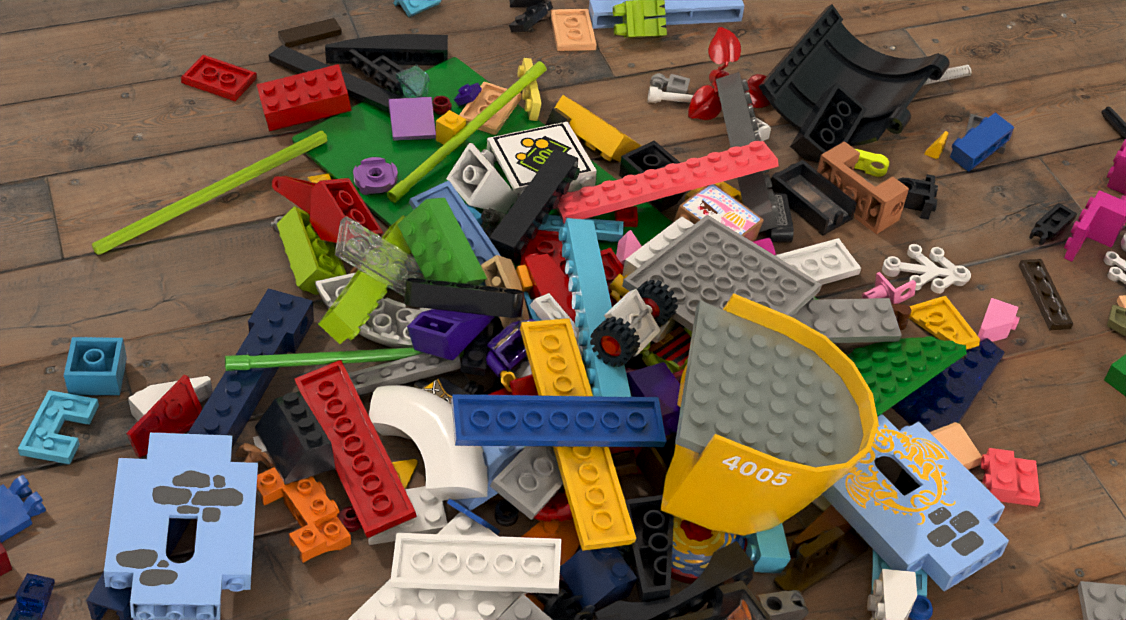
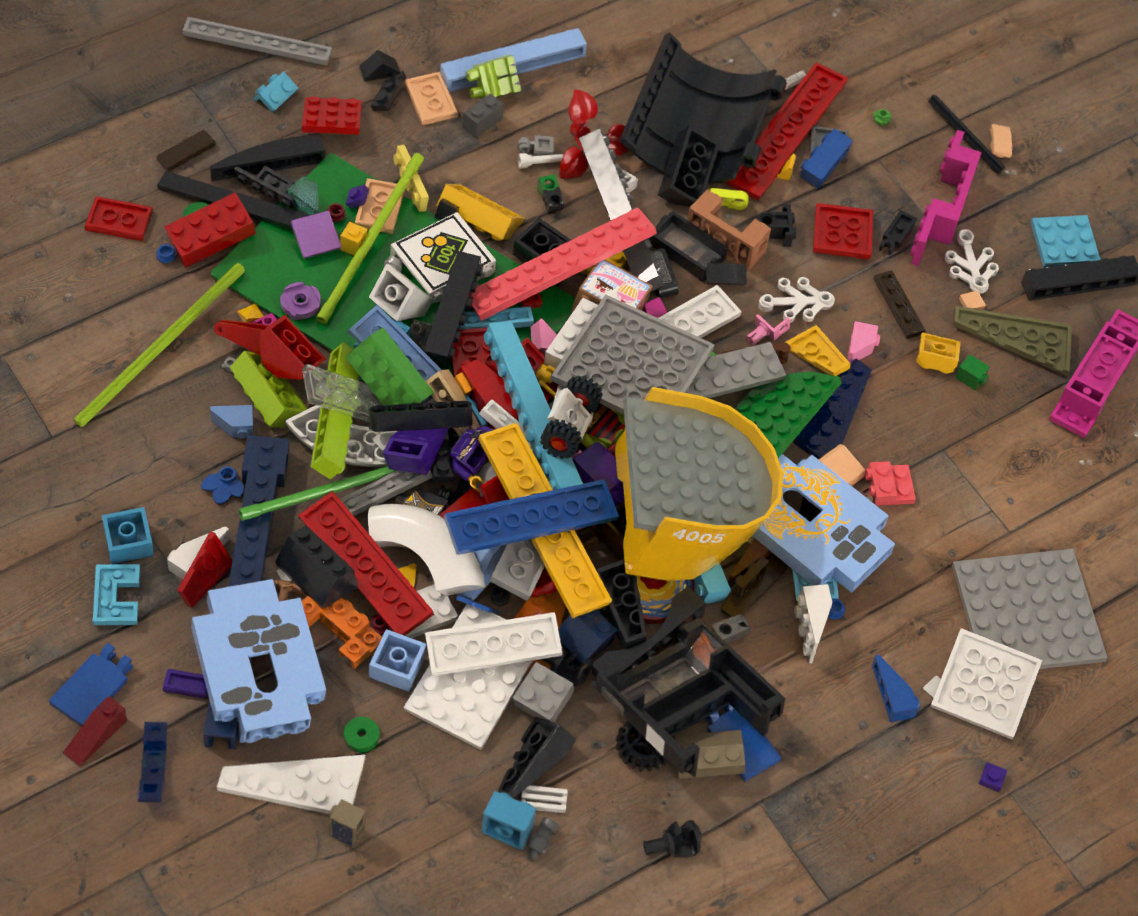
camera: 15 degrees left, 10 degrees up
(90, 538) = (185, 683): none -> dark purple tile
(226, 336) = (222, 487): none -> blue plate
(253, 113) = (166, 253): none -> blue plate
(263, 273) = (234, 420): none -> medium blue slope
(356, 562) = (397, 660): none -> light blue brick
(465, 24) = (332, 115): none -> red plate
(621, 49) = (483, 115): none -> dark grey brick
(674, 128) = (550, 193): none -> leg
(851, 229) = (726, 274): none -> black slope
(943, 113) = (789, 129): none -> red plate
(990, 213) = (843, 231): none -> red plate
(1048, 118) = (882, 117): none -> bright green plate
(1086, 350) = (938, 353): none -> yellow slope

